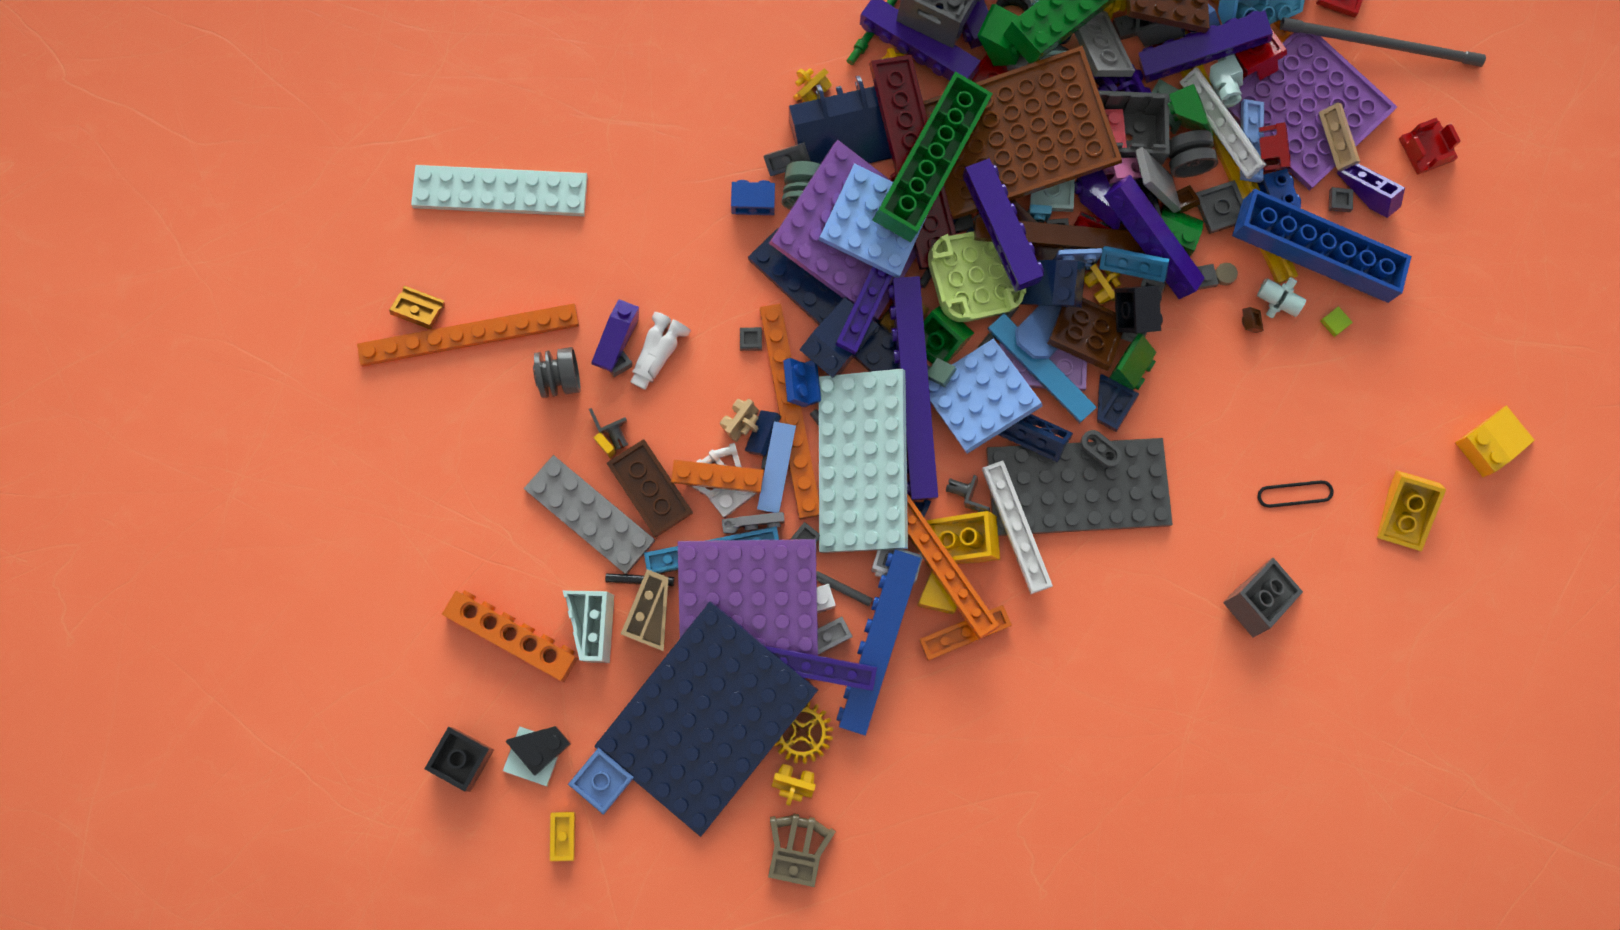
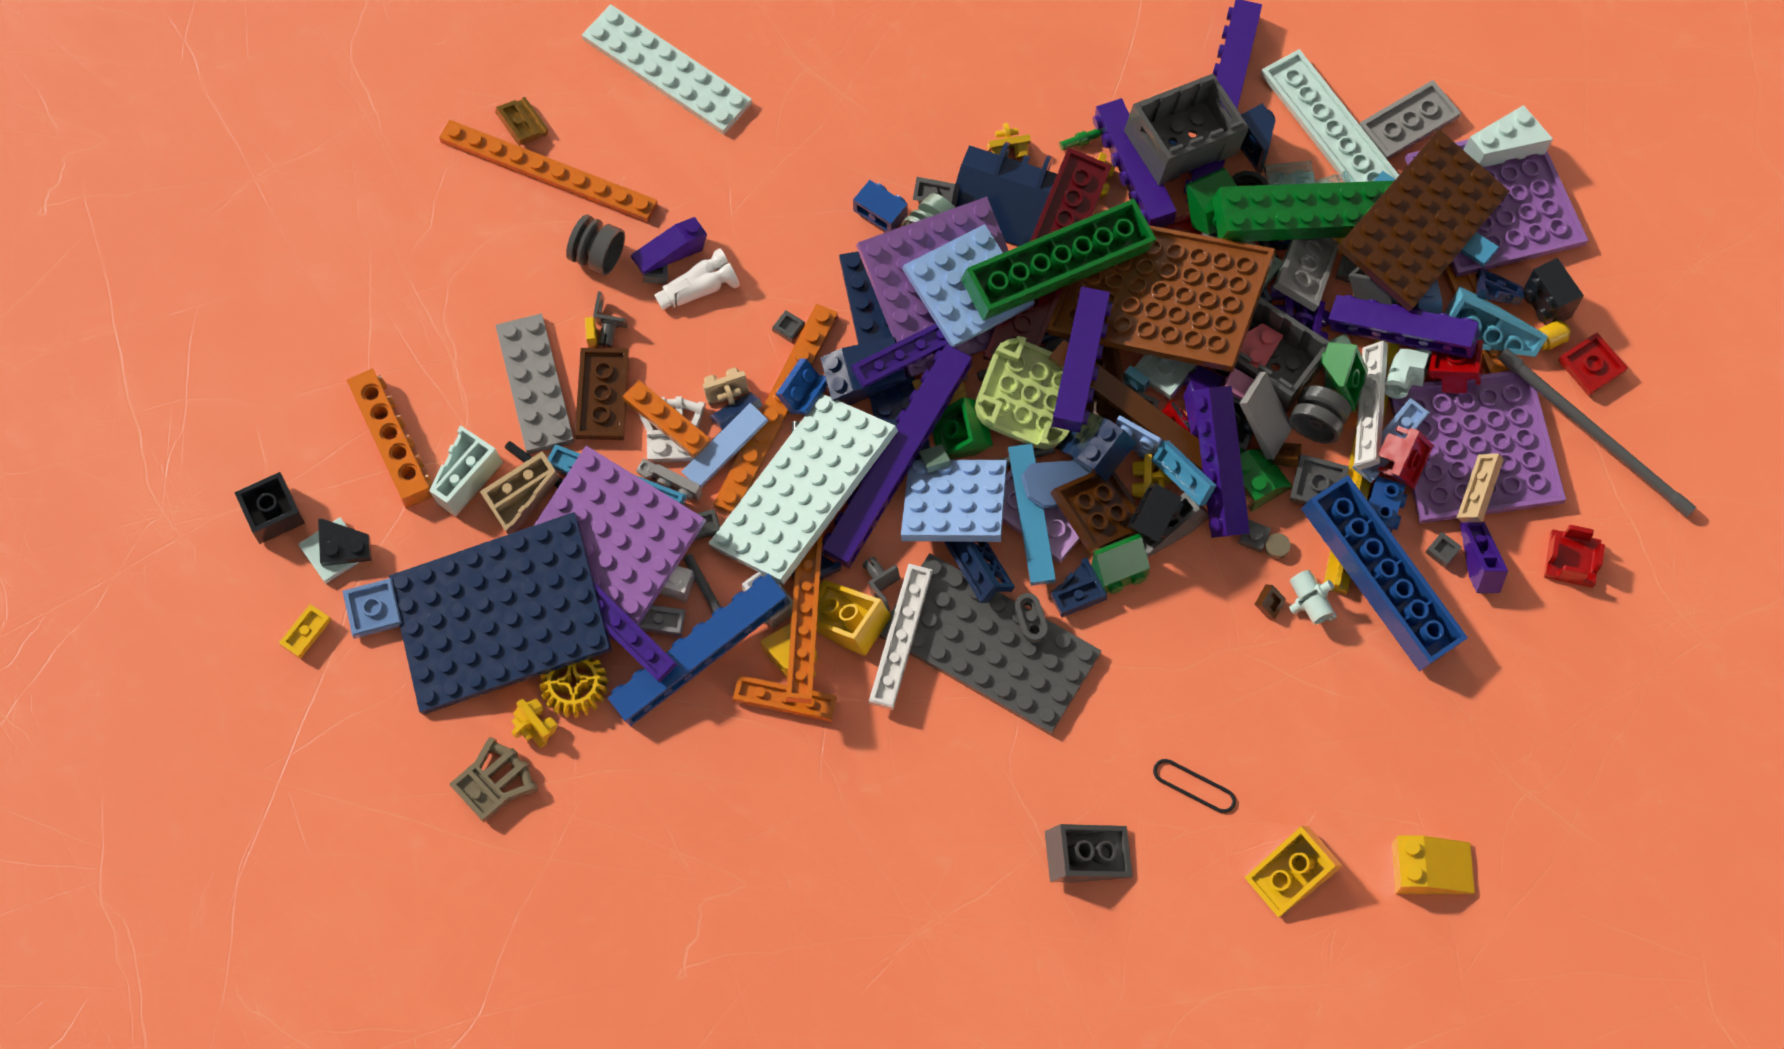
camera: 40 degrees right, 10 degrees down
(1336, 321) = (1354, 656): lime tile -> none

